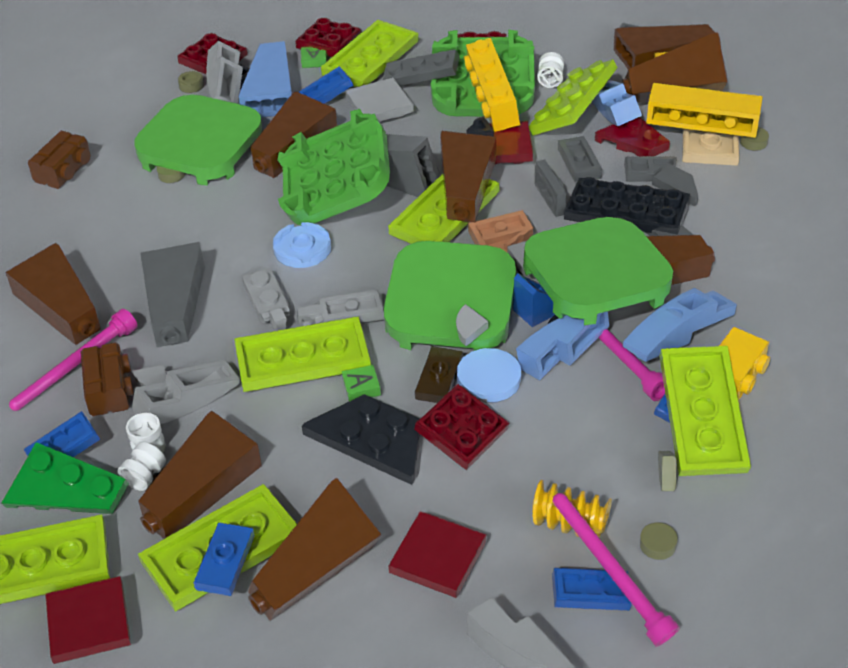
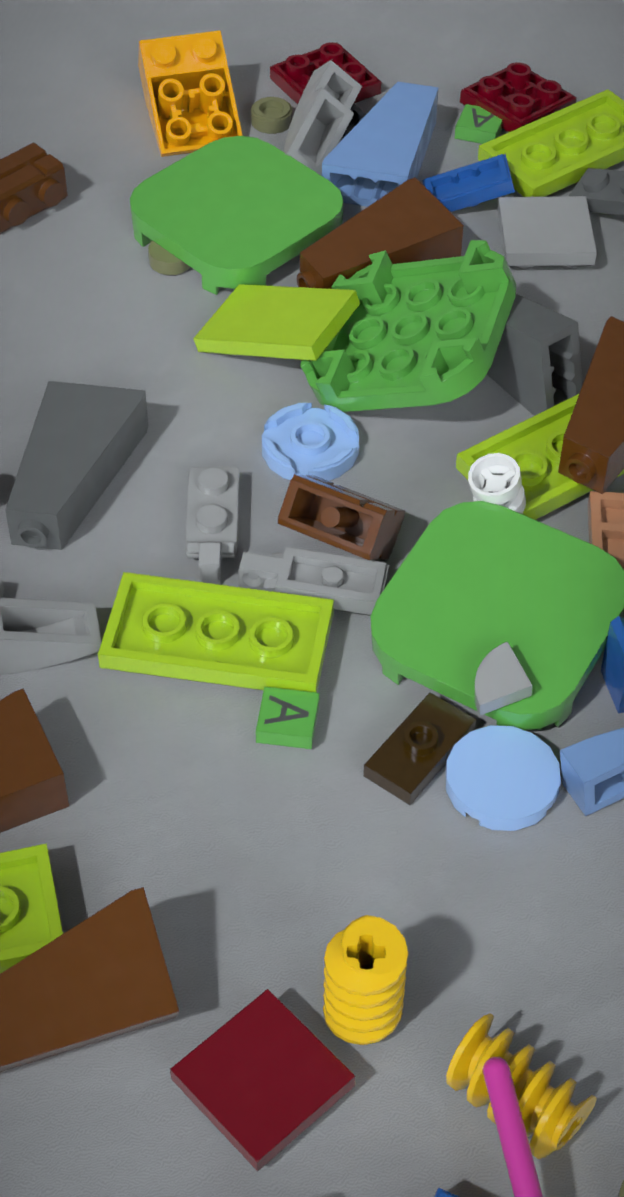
camera: 20 degrees right, 5 degrees up
(136, 80) = (188, 91): none -> light orange slope
(254, 187) = (277, 321): none -> lime tile
(342, 274) = (341, 517): none -> reddish brown brick
(370, 434) = (263, 817): black wing -> none
(420, 228) = (497, 481): none -> white wheel
(461, 426) = (412, 856): dark red tile -> none
(471, 486) = (365, 980): none -> yellow piece

